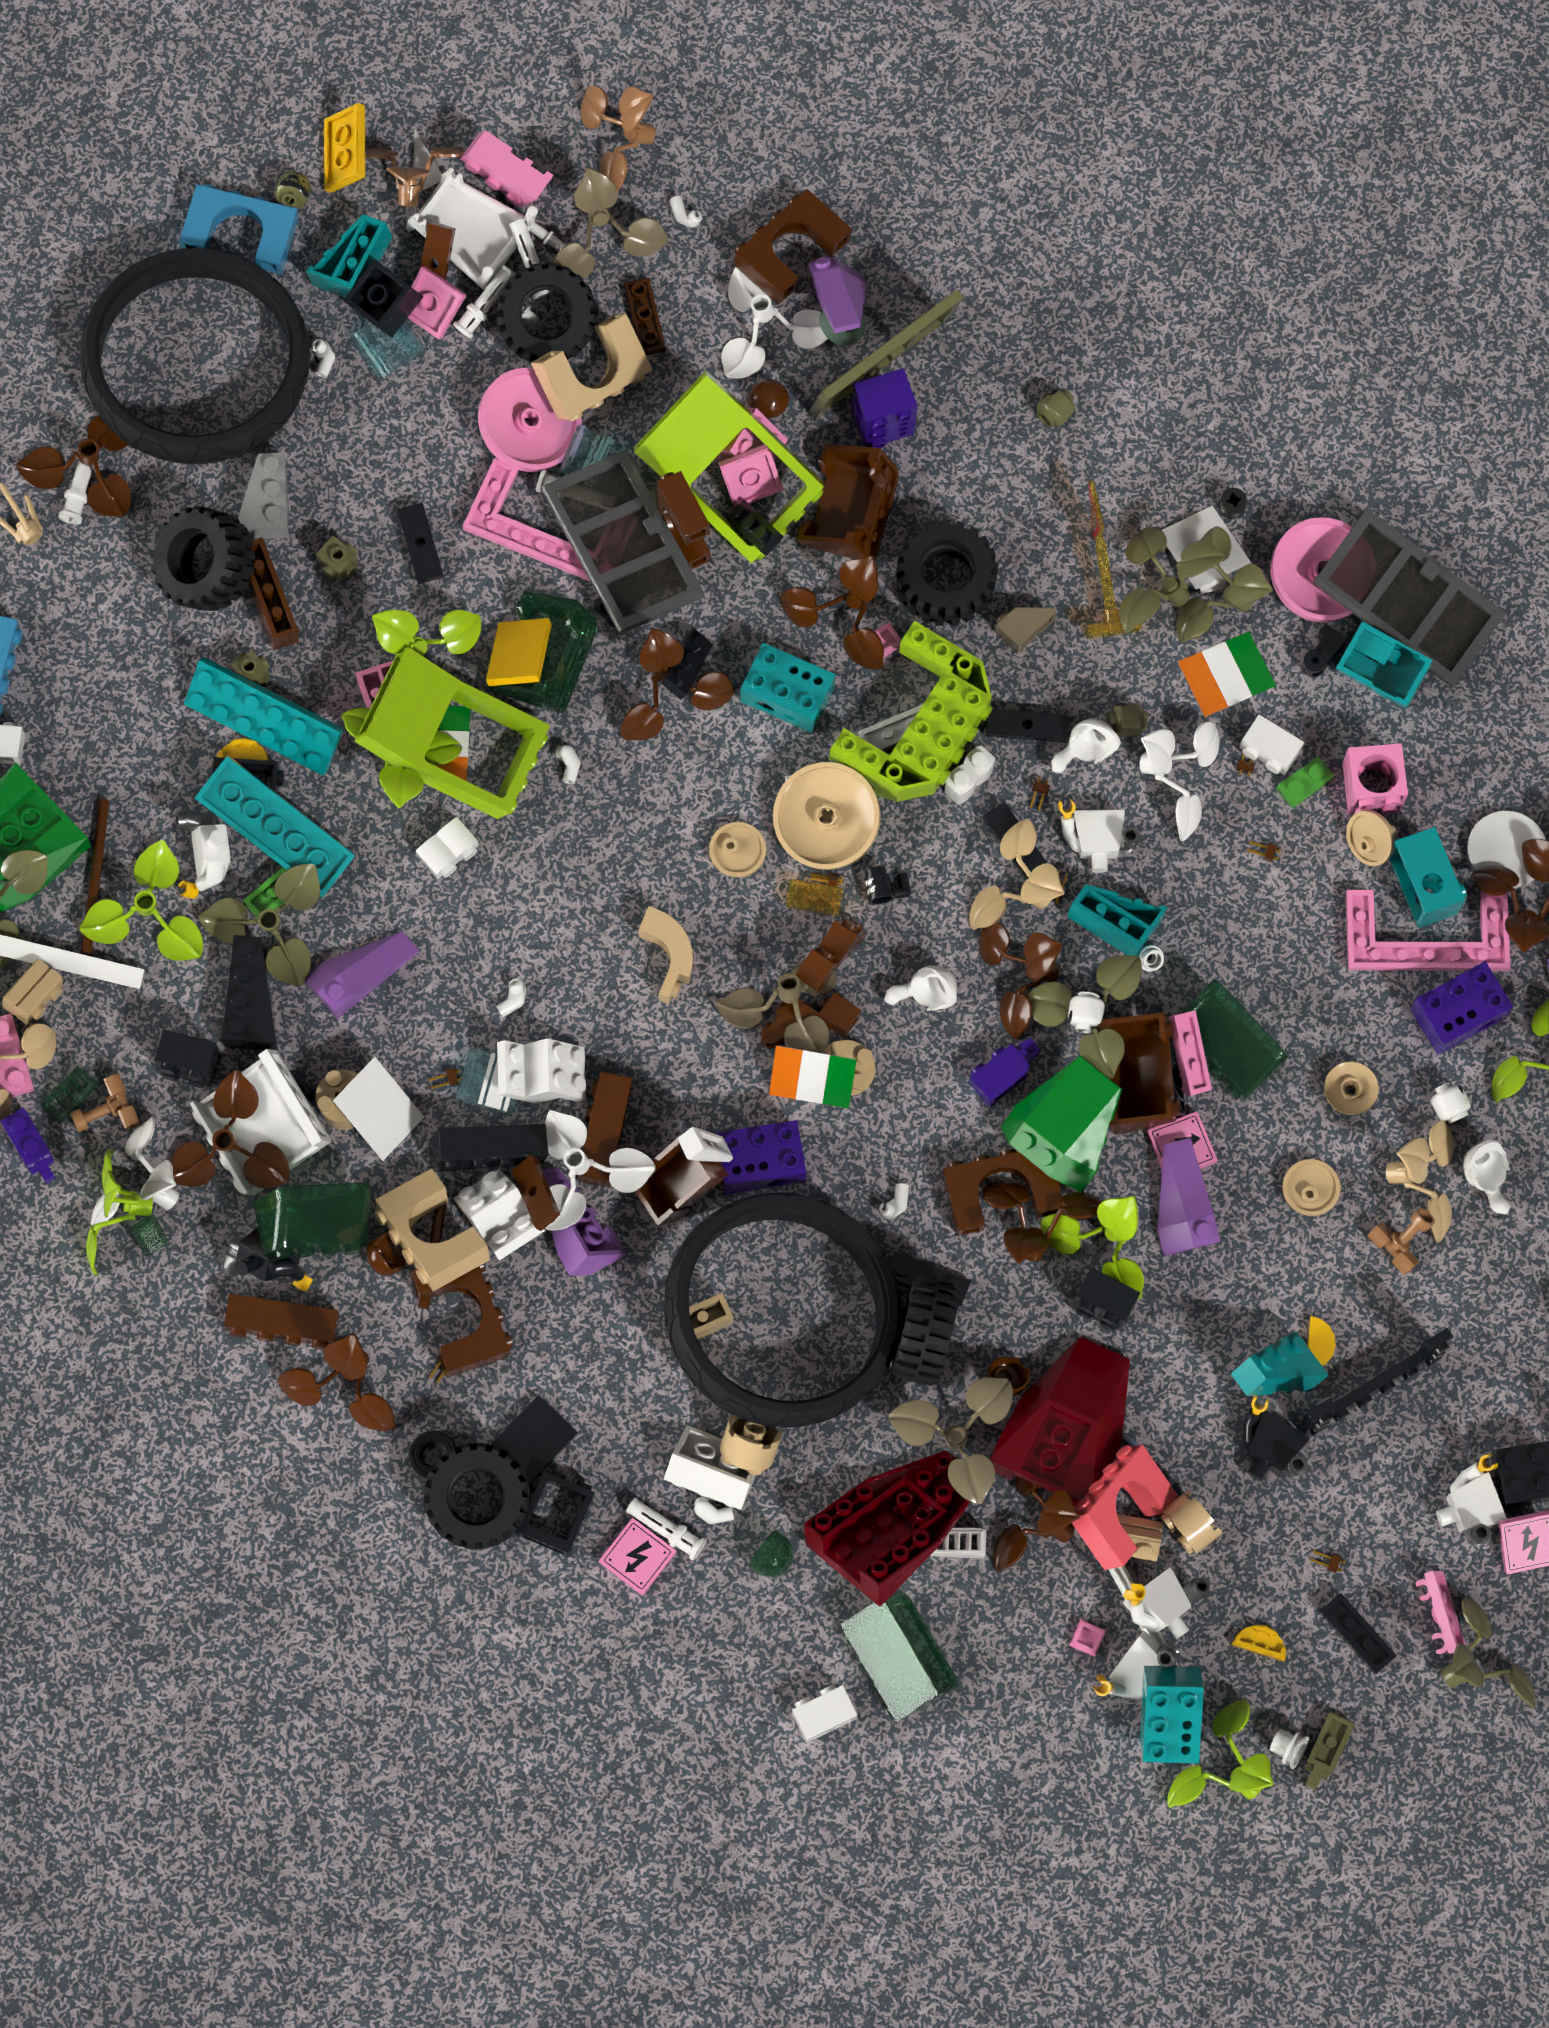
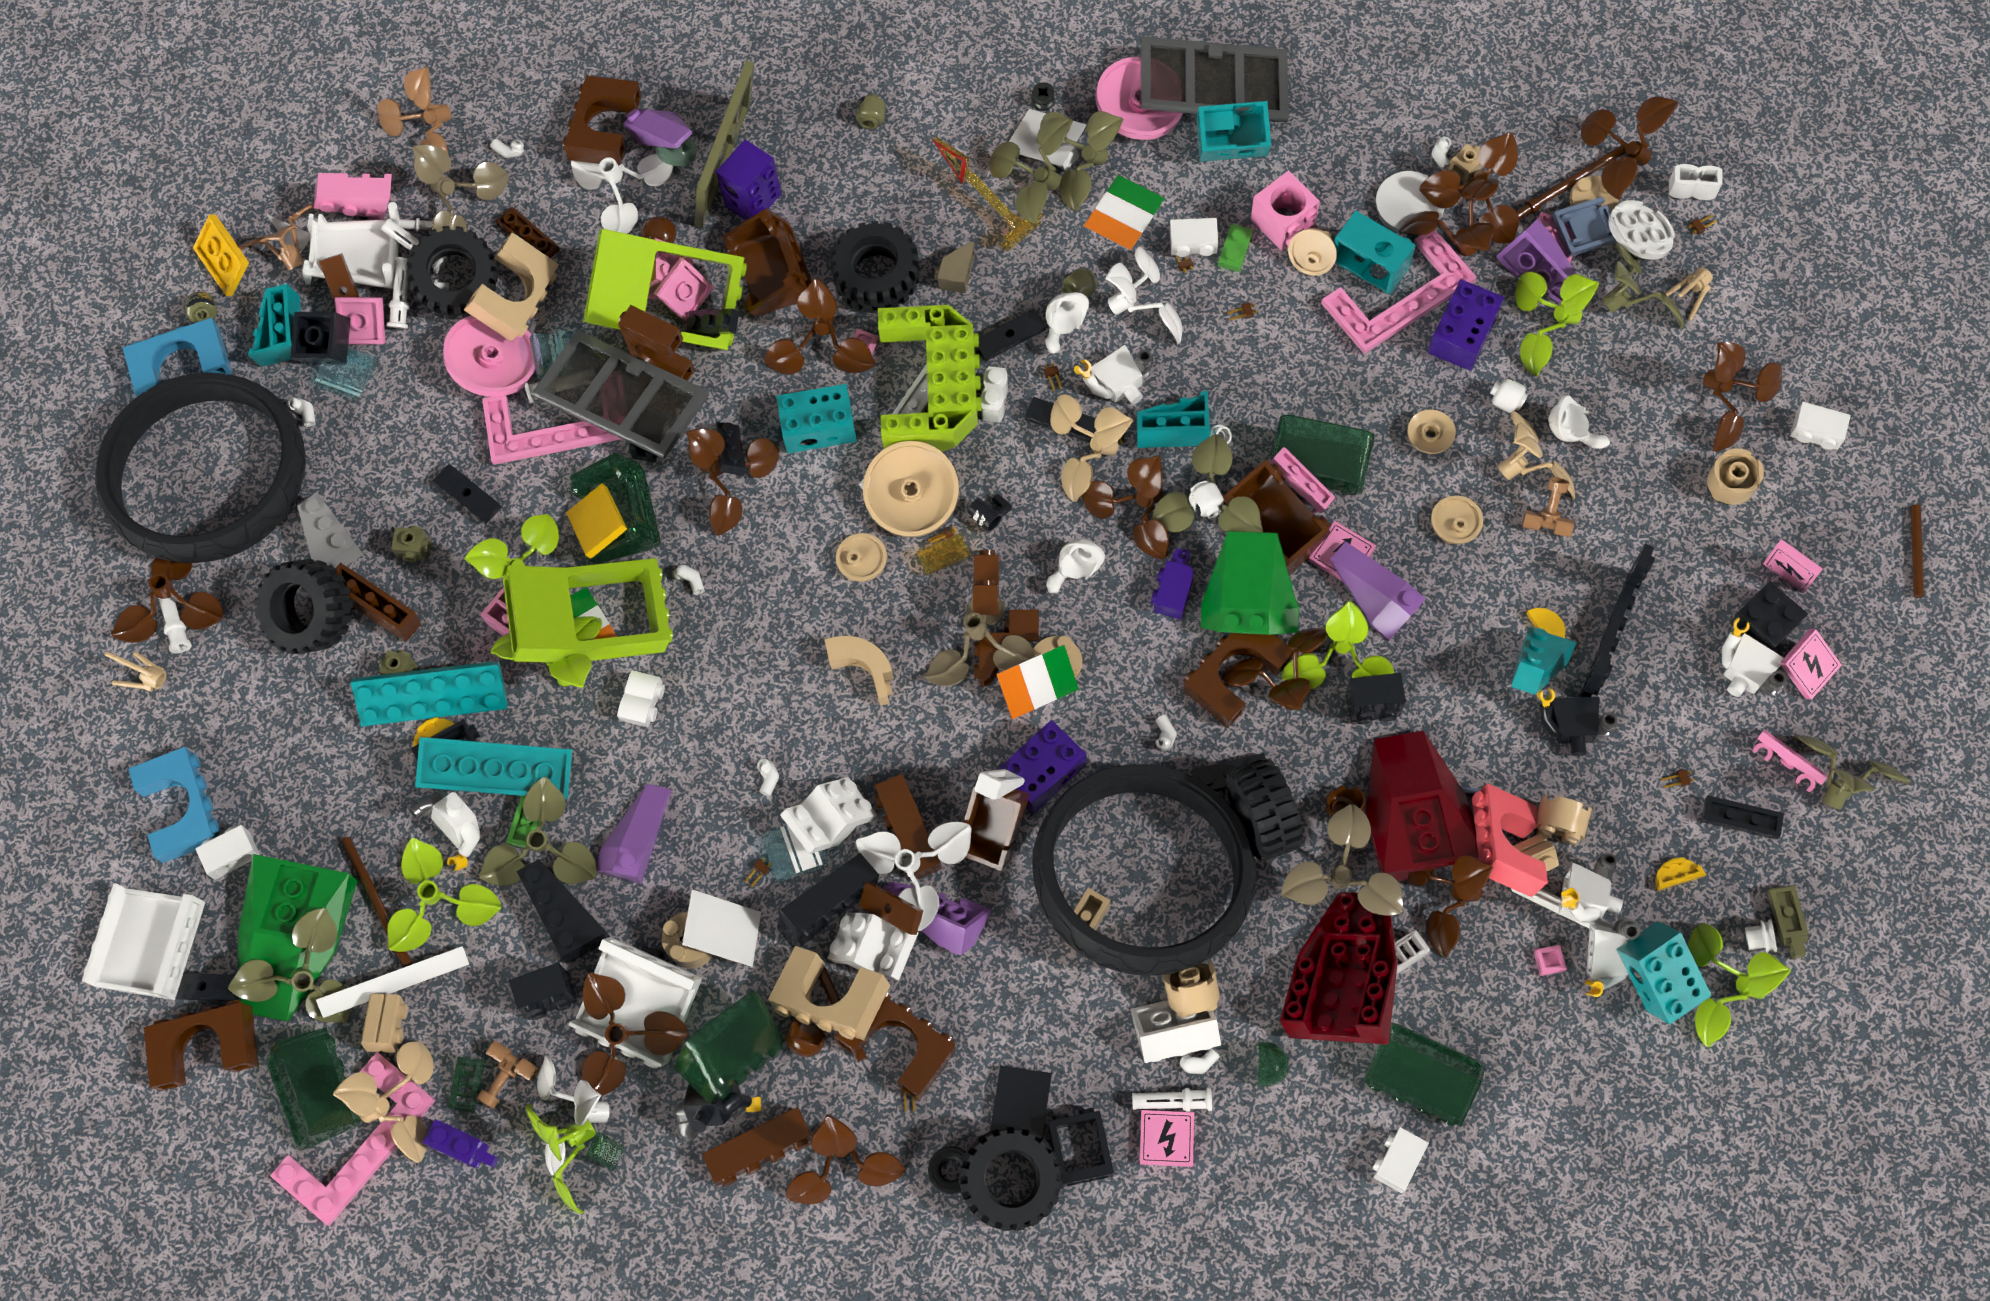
camera: 25 degrees left, 5 degrees down
(1319, 659) = (1183, 151): black leg -> none

